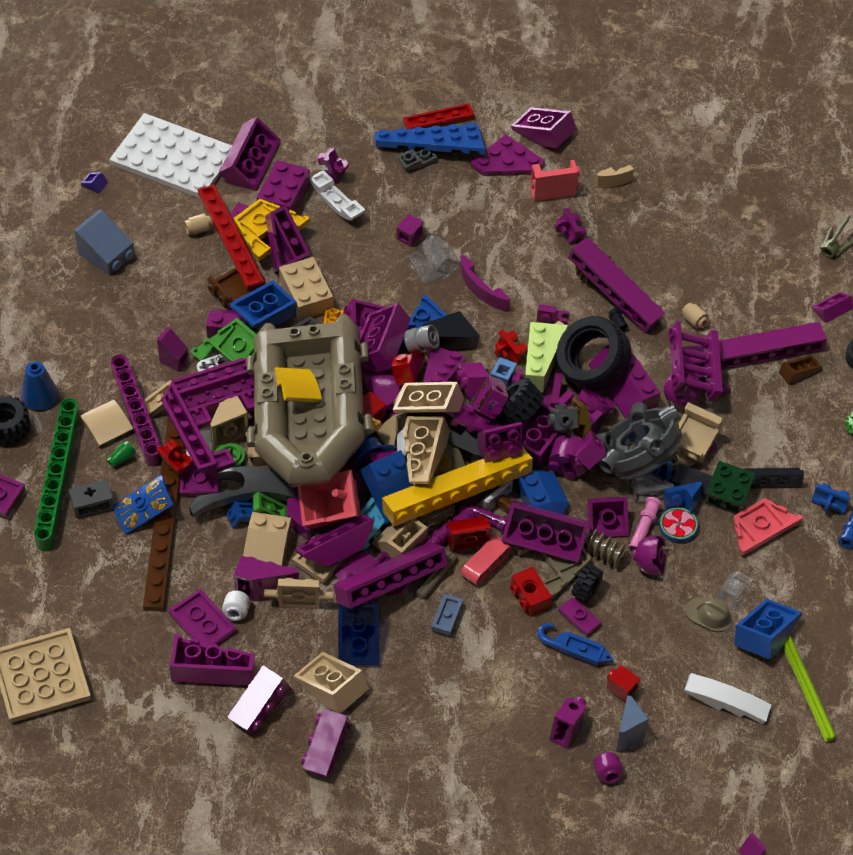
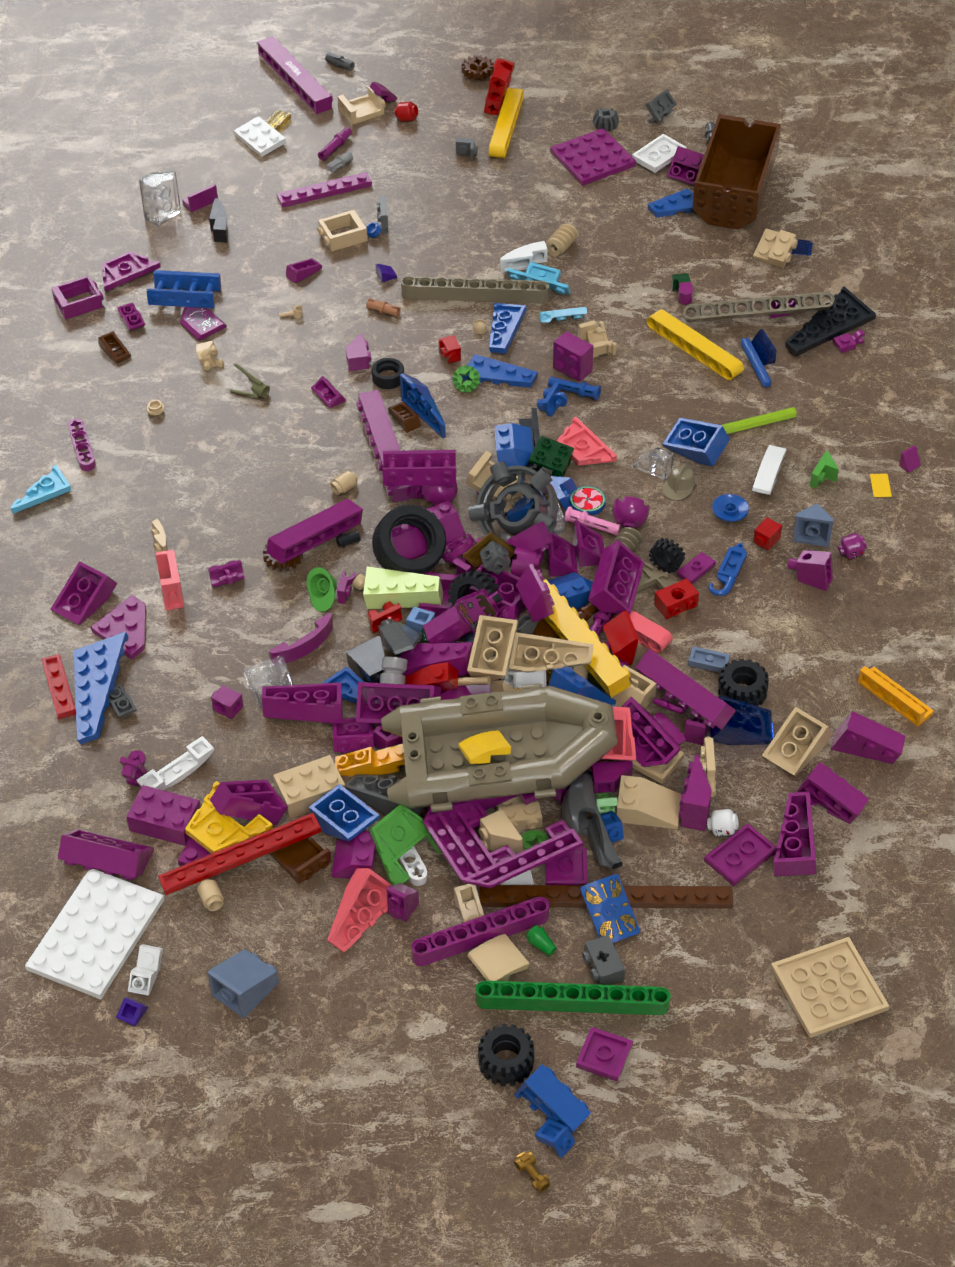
camera: 90 degrees left, 5 degrees down
(38, 388) = (458, 1027): blue cone -> none
(126, 187) = (147, 969): none -> white slope
(156, 318) = (360, 907): none -> coral wedge
(175, 457) = (553, 879): red hips -> none
(387, 777) = (894, 695): none -> light orange fence
(401, 280) = (304, 702): none -> magenta wedge
(407, 624) = (744, 673): none -> black tyre
(468, 344) = (397, 636): none -> dark grey wedge
(550, 297) = (321, 588): none -> bright green piece
(590, 485) = (561, 557): none -> magenta slope
(669, 647) = (730, 507): none -> blue dish
(680, 93) = (43, 490): none -> medium azure wing
(715, 817) = (880, 485): none -> yellow sticker
(724, 120) = (81, 444): none -> magenta beam
(733, 755) = (826, 469): none -> bright green slope
(755, 453) = (513, 444): none -> blue wedge
(798, 168) = (155, 407): none -> tan plate
(818, 380) = (419, 399): none -> blue wedge

